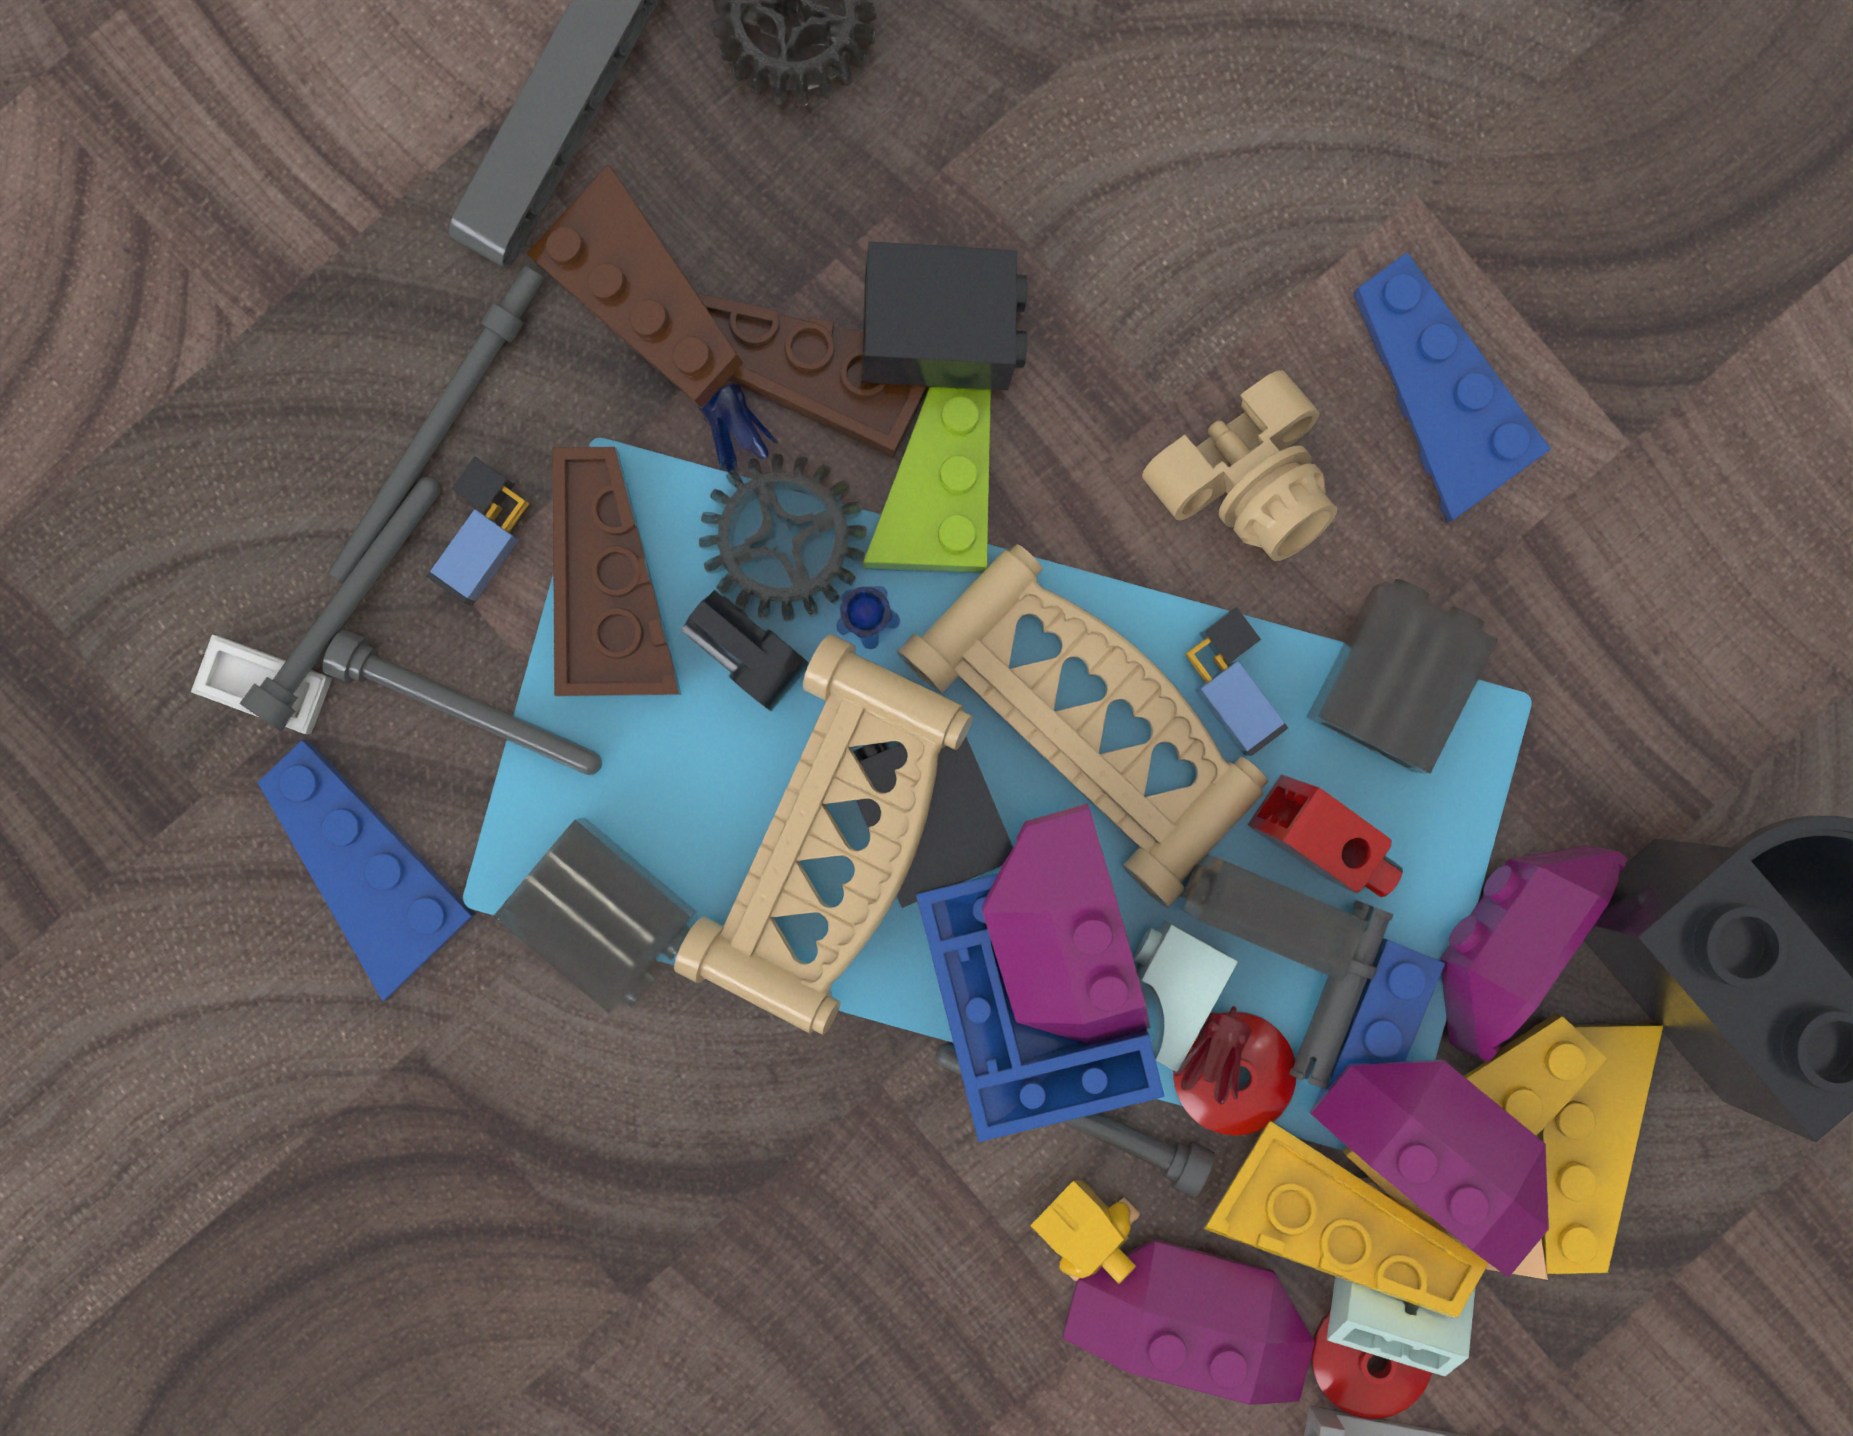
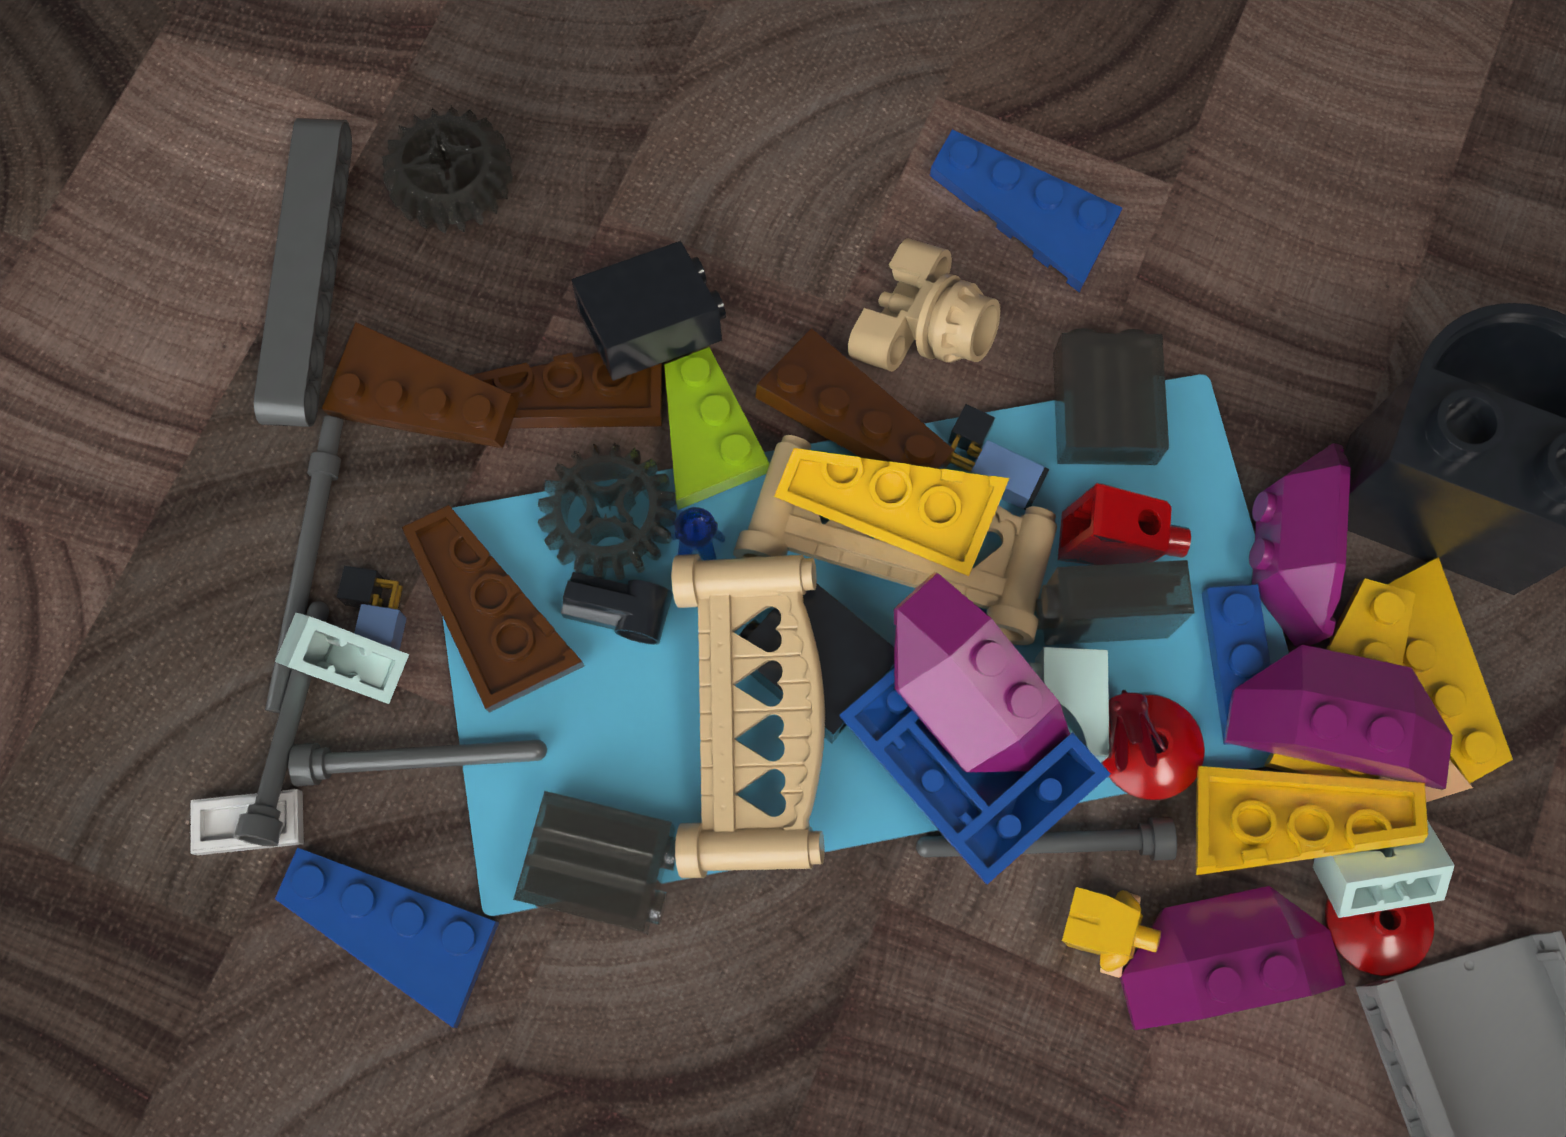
camera: 25 degrees left, 15 degrees down
(424, 565) = (342, 657): none -> light aqua arch
(727, 412) = (522, 447): clear blue piece -> none
(1102, 697) = (906, 505): none -> yellow wing
(1105, 542) = (847, 407): none -> reddish brown wing
(1339, 1002) = (1199, 657): dark grey pin -> none

